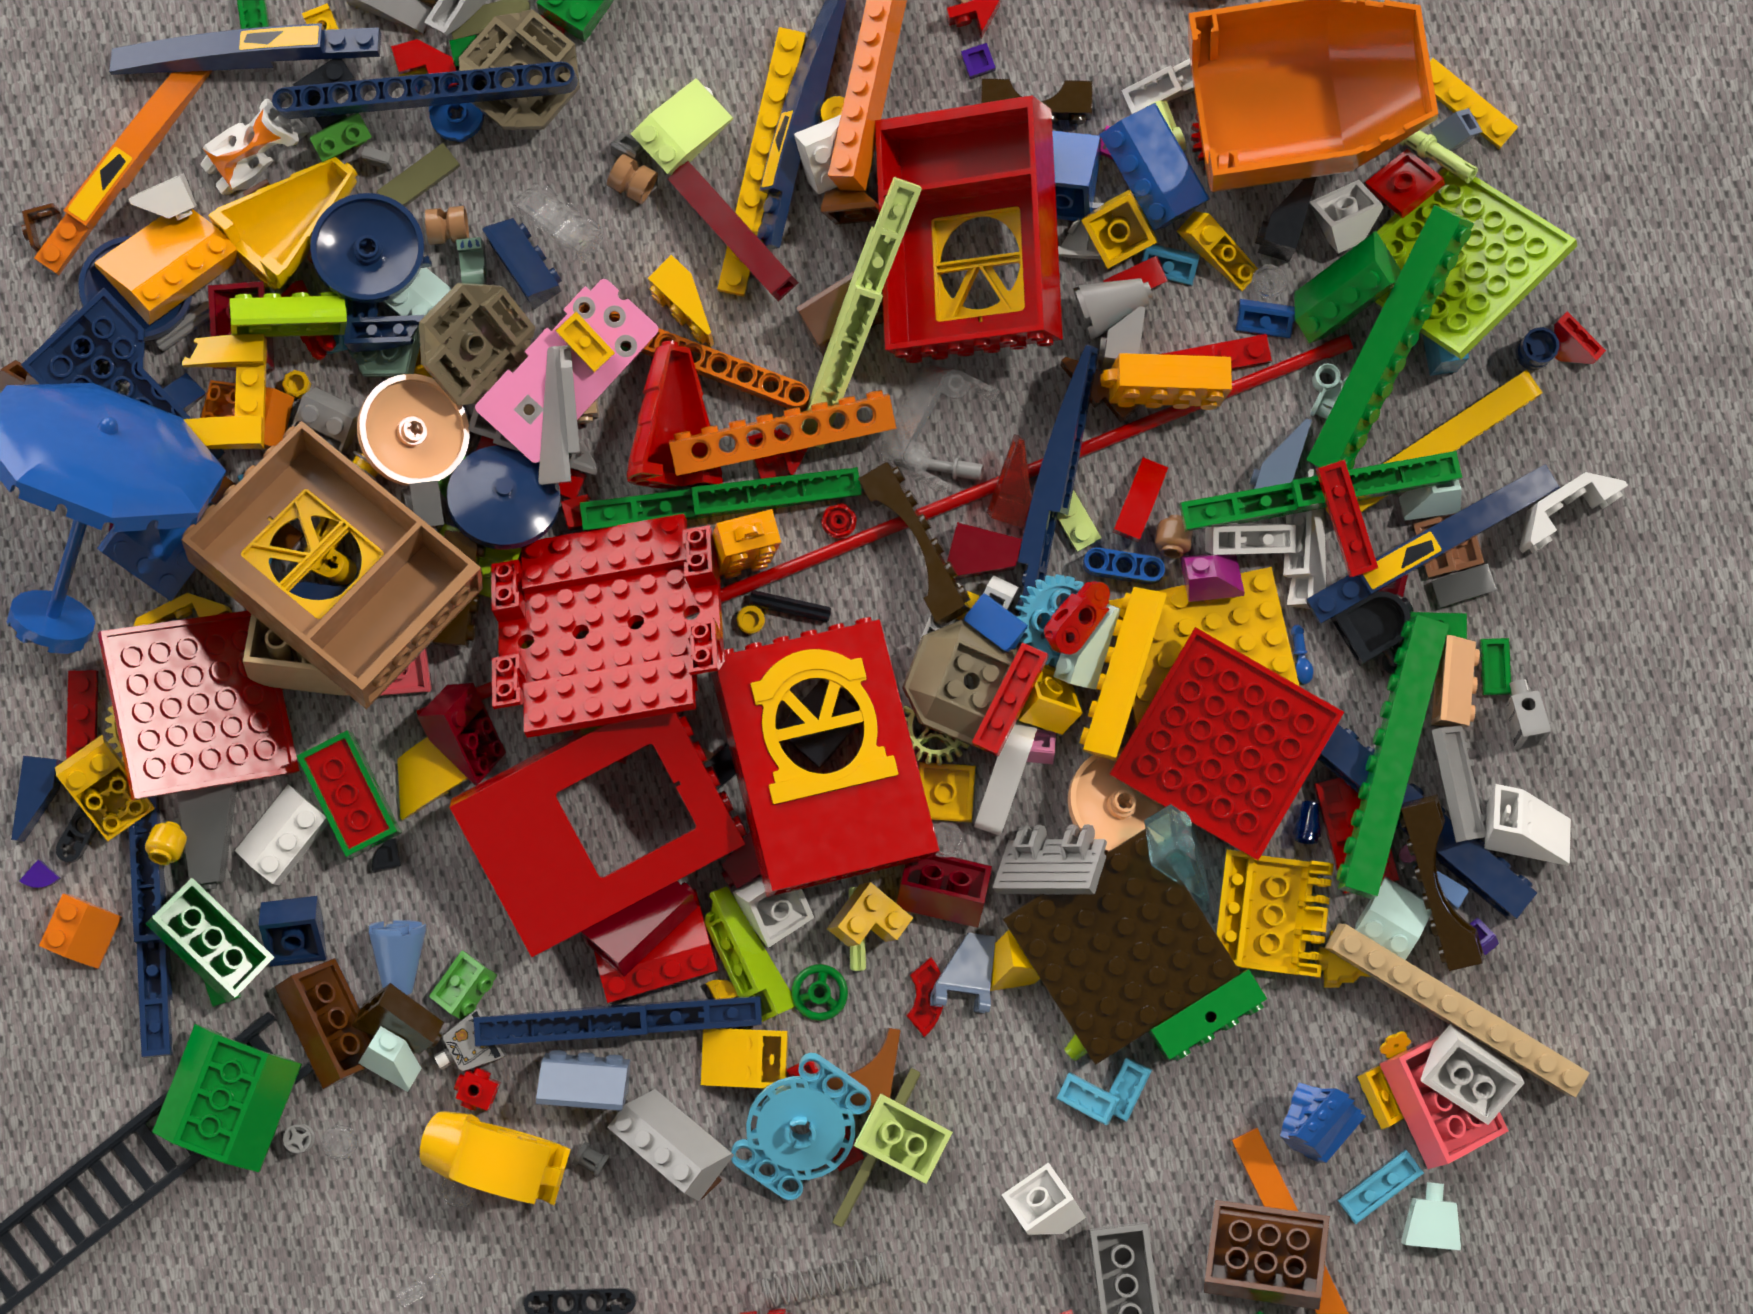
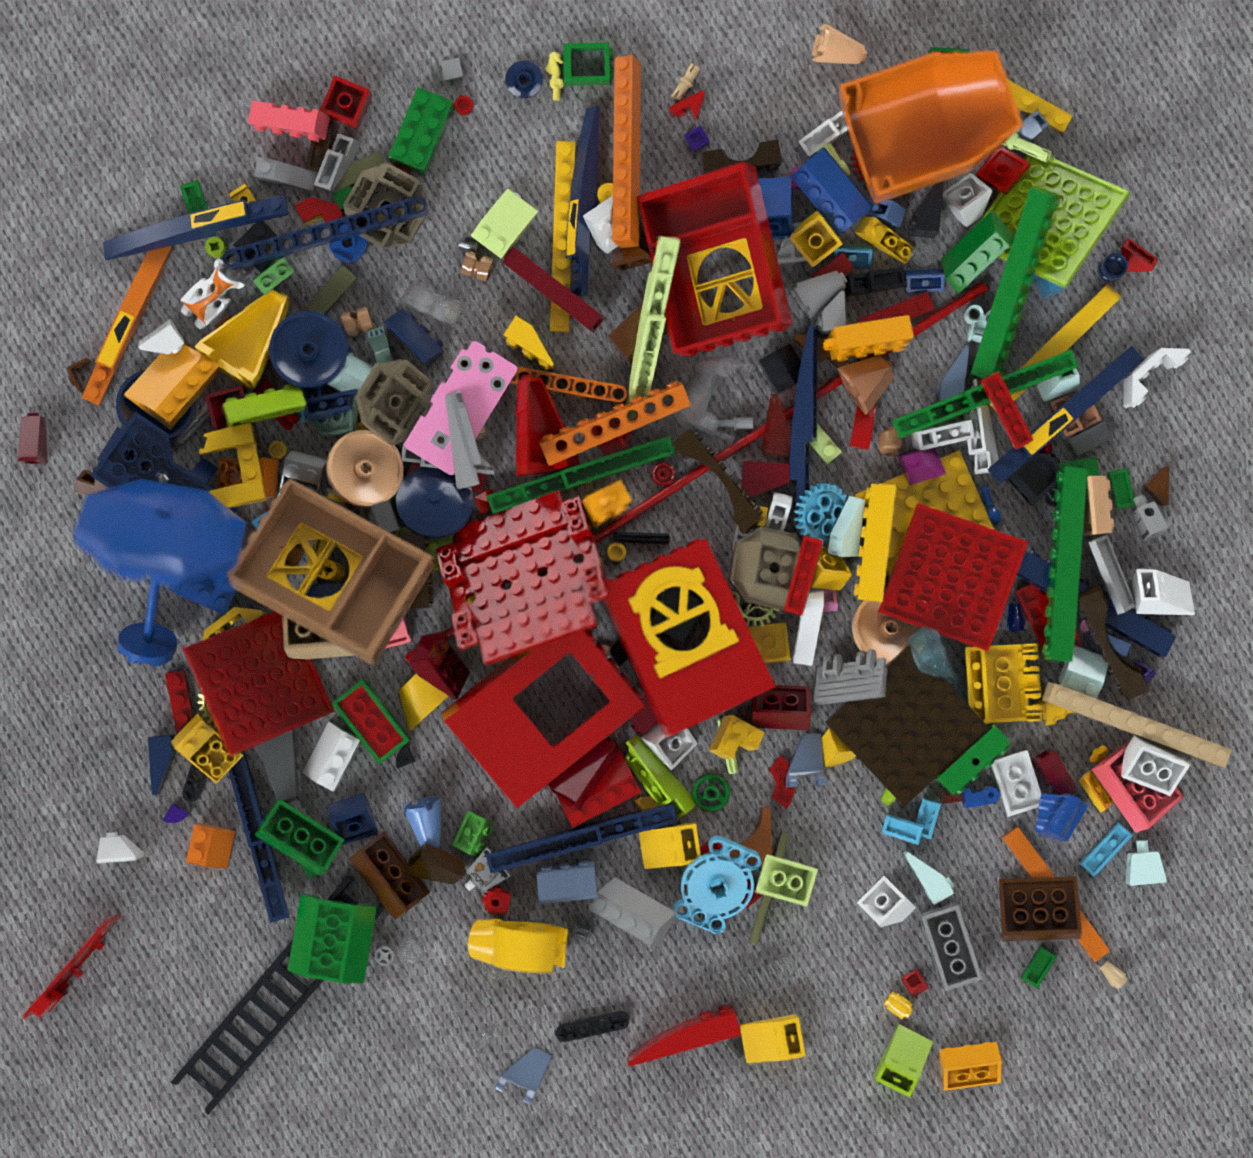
camera: 10 degrees left, 5 degrees up
(165, 843) = (256, 778): yellow head -> none
(261, 79) = (218, 249): none -> lime wheel
(378, 158) = (301, 284): light grey tile -> none
(391, 1059) = (435, 891): light aqua slope -> none
(585, 342) = (470, 387): yellow plate -> none
(955, 838) = (782, 674): clear plate -> none
(996, 623) = (783, 525): blue slope -> none
(1036, 403) = (781, 368): none -> black slope
(1069, 632) = (837, 511): red piece -> none
(1117, 1184) = (933, 883): none -> light aqua slope
(1136, 561) = (869, 465): blue beam -> none
(1155, 441) = (866, 380): none -> nougat slope
(1167, 1066) = (949, 798): none -> clear red tile
(1193, 306) = (875, 281): none -> black slope
(1217, 1074) = (985, 796): none -> blue leg
(1228, 210) = (887, 212): none -> medium blue slope
(1267, 1062) = (1017, 782): none -> white plate
(1325, 1057) = (1055, 772): none -> dark red slope
(1549, 673) = (1158, 486): none -> reddish brown slope

